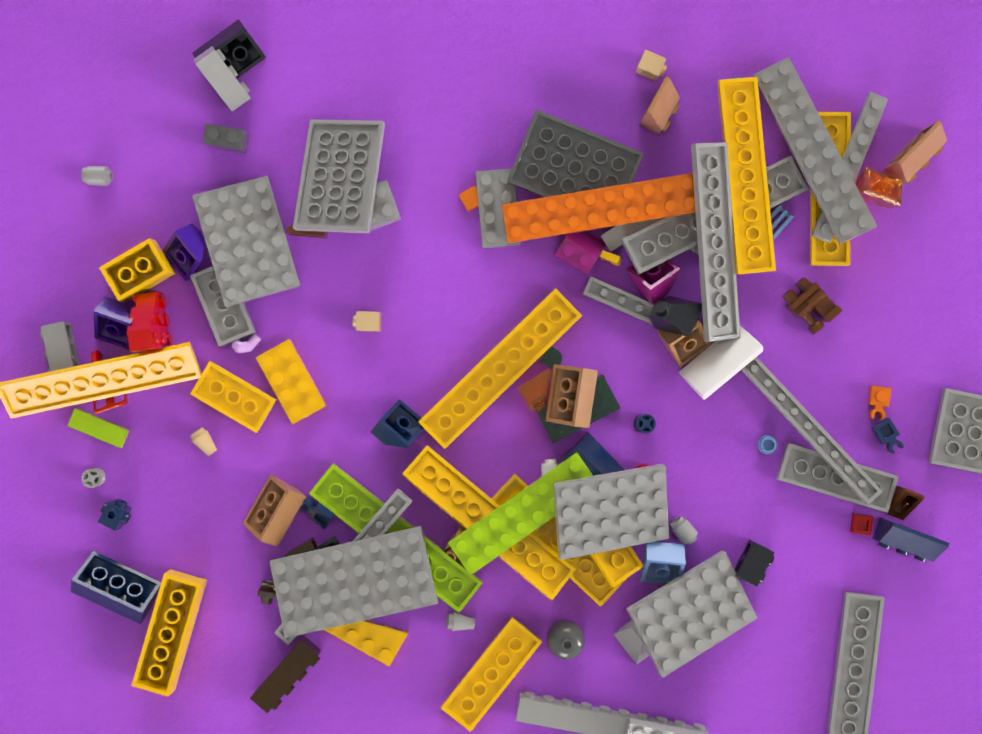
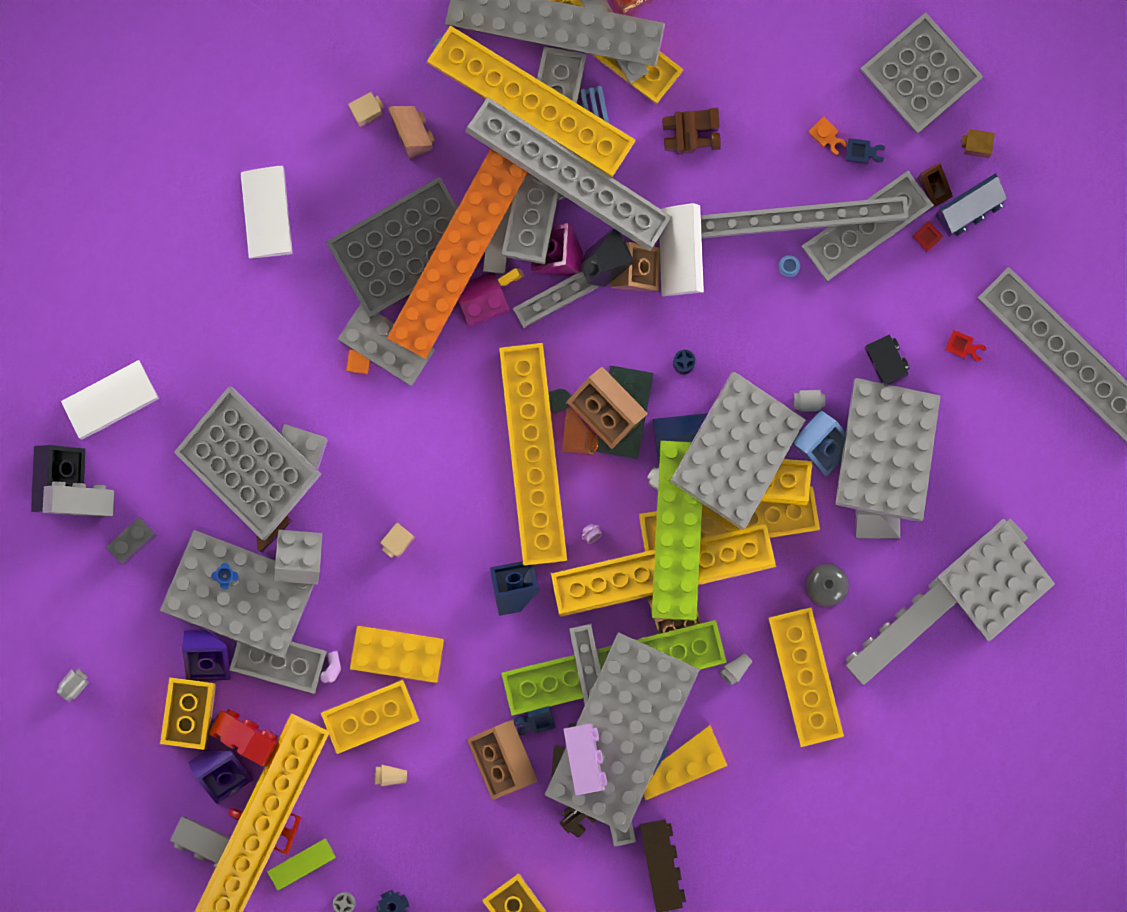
camera: 50 degrees left, 5 degrees down
(250, 226) = (224, 569): none -> blue plate
(302, 261) = (298, 557): none -> light grey brick
(311, 47) = (110, 400): none -> white slope
(312, 573) = (585, 759): none -> lavender brick
(476, 451) = (591, 533): none -> lavender plate
(526, 53) = (266, 212): none -> white slope
(803, 607) = (961, 345): none -> red plate
(956, 511) = (978, 143): none -> pearl gold brick

